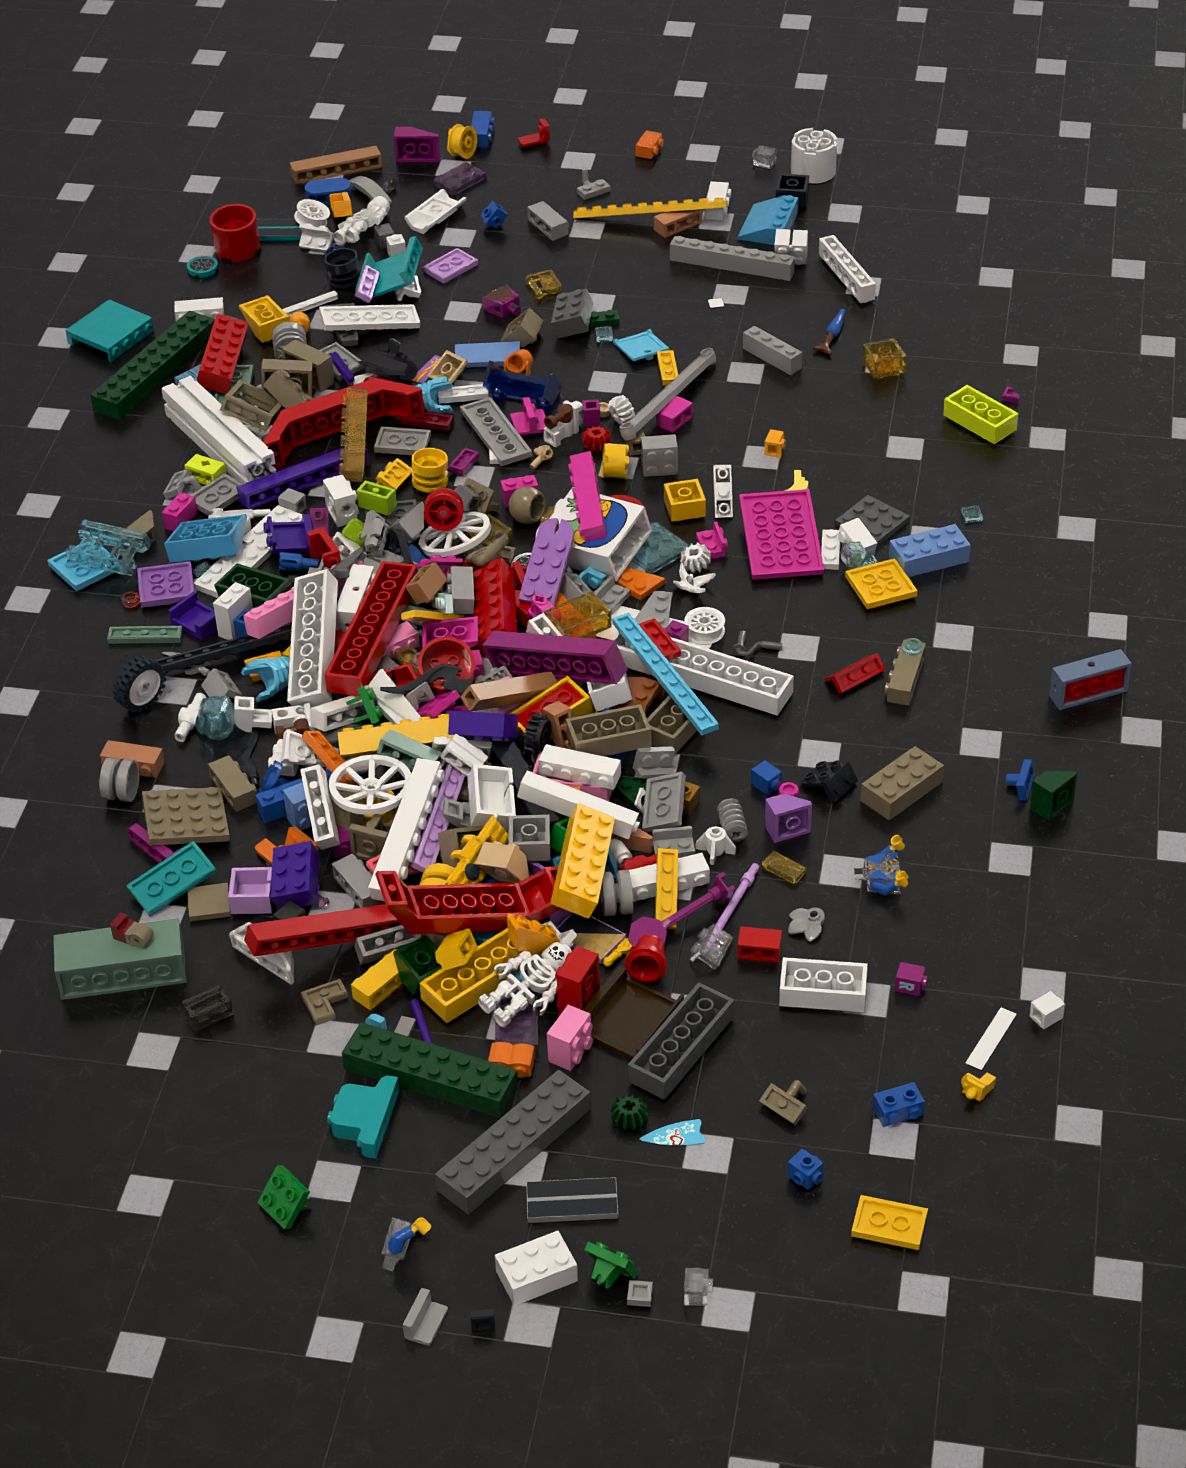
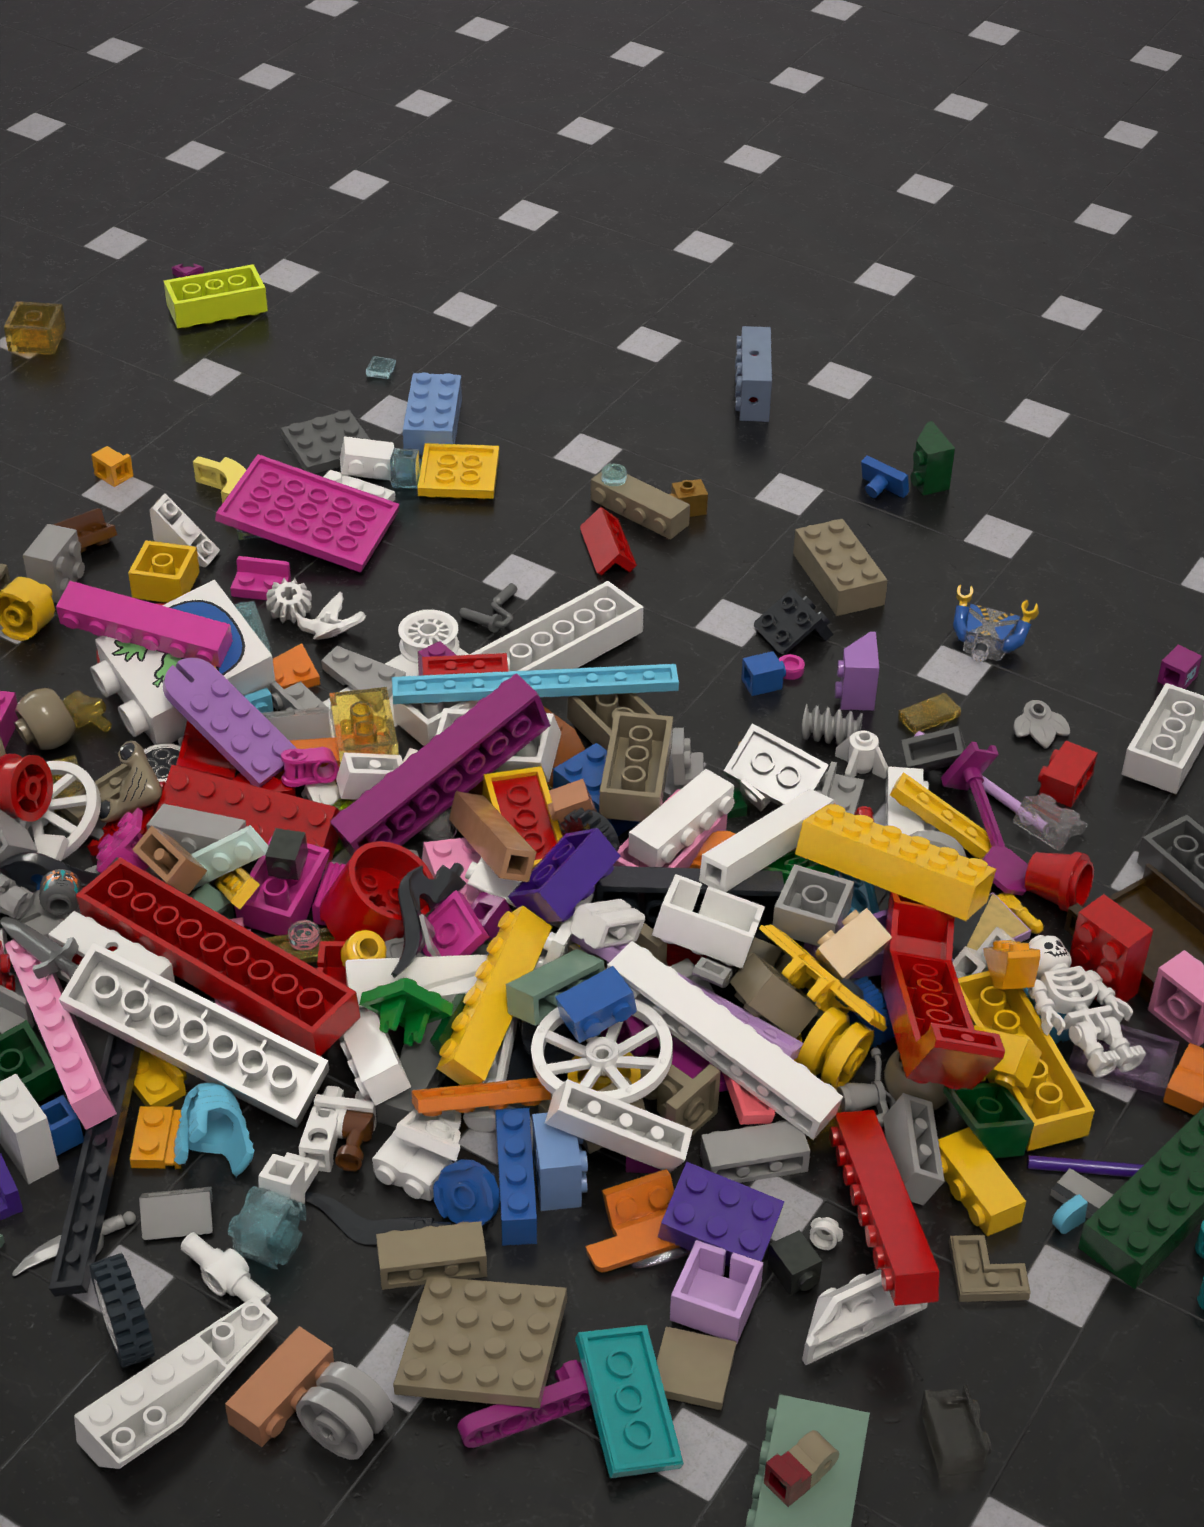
camera: 70 degrees left, 0 degrees up
(114, 721) = (170, 1389): none -> white wedge
(388, 764) = (596, 1004): none -> blue brick
(390, 554) = (59, 892): none -> dark grey head
(400, 674) = (363, 945): none -> yellow head
(426, 546) = (51, 845): none -> white tile
(456, 623) = (286, 854): none -> pearl dark grey brick
(703, 457) = (90, 528): none -> reddish brown bracket
(734, 872) = (934, 749): none -> dark grey piece
(927, 693) = (693, 493): none -> pearl gold brick

